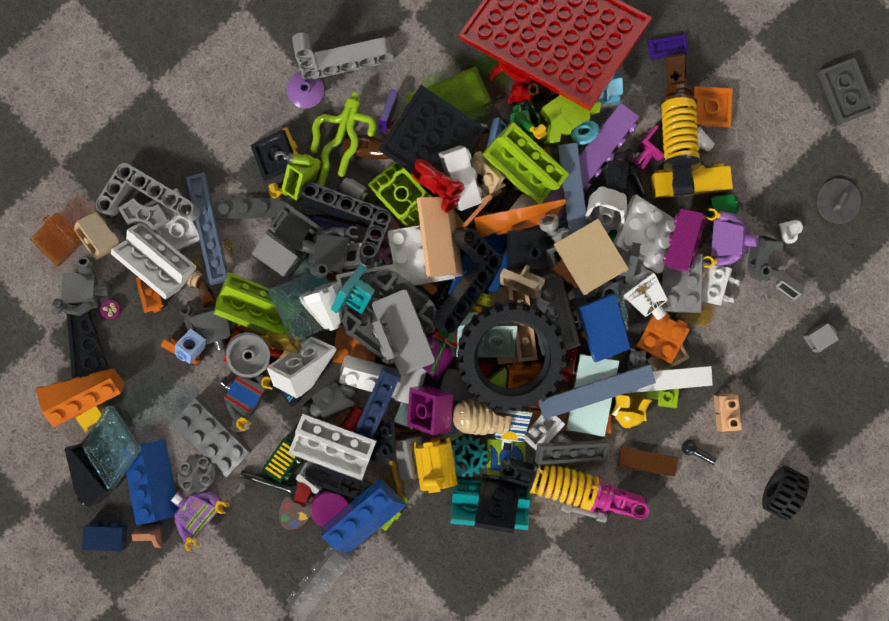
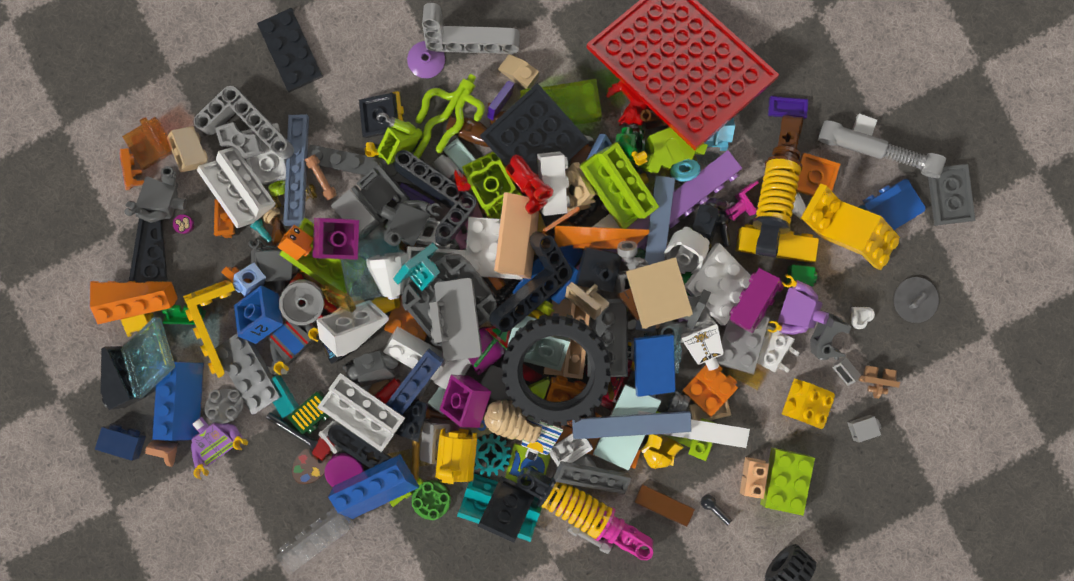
camera: 15 degrees right, 0 degrees up
(40, 262) = (128, 174): none -> orange plate
(141, 396) = (176, 315): none -> green hinge
(151, 374) = (204, 297): none -> yellow bracket
(170, 114) = (290, 50): none -> black plate
(184, 292) = (258, 226): none -> teal piece
(194, 251) = (277, 188): none -> lime tile
(207, 378) = (258, 314): none -> blue brick
(227, 298) = (296, 243): none -> orange brick
(244, 242) = (312, 162): none -> nougat bar
(256, 458) = (287, 403): none -> teal panel
(265, 284) = (335, 238): none -> magenta slope
(329, 336) = (385, 304): none -> yellow cone
(361, 173) = (458, 154): none -> light aqua tile
(372, 198) = (461, 181): none -> red bar
(399, 78) = (519, 71): none -> tan slope
(421, 514) = (431, 500): none -> bright green tile
(720, 61) = (835, 134): none -> light grey piece
(745, 46) = (864, 124): none -> white tile
(758, 146) = (851, 227): none -> yellow bracket
(760, 407) = (788, 481): none -> lime brick
(761, 327) = (808, 403): none -> yellow bracket
(786, 125) = (895, 204): none -> blue bracket
(832, 284) = (888, 379): none -> medium nougat hips

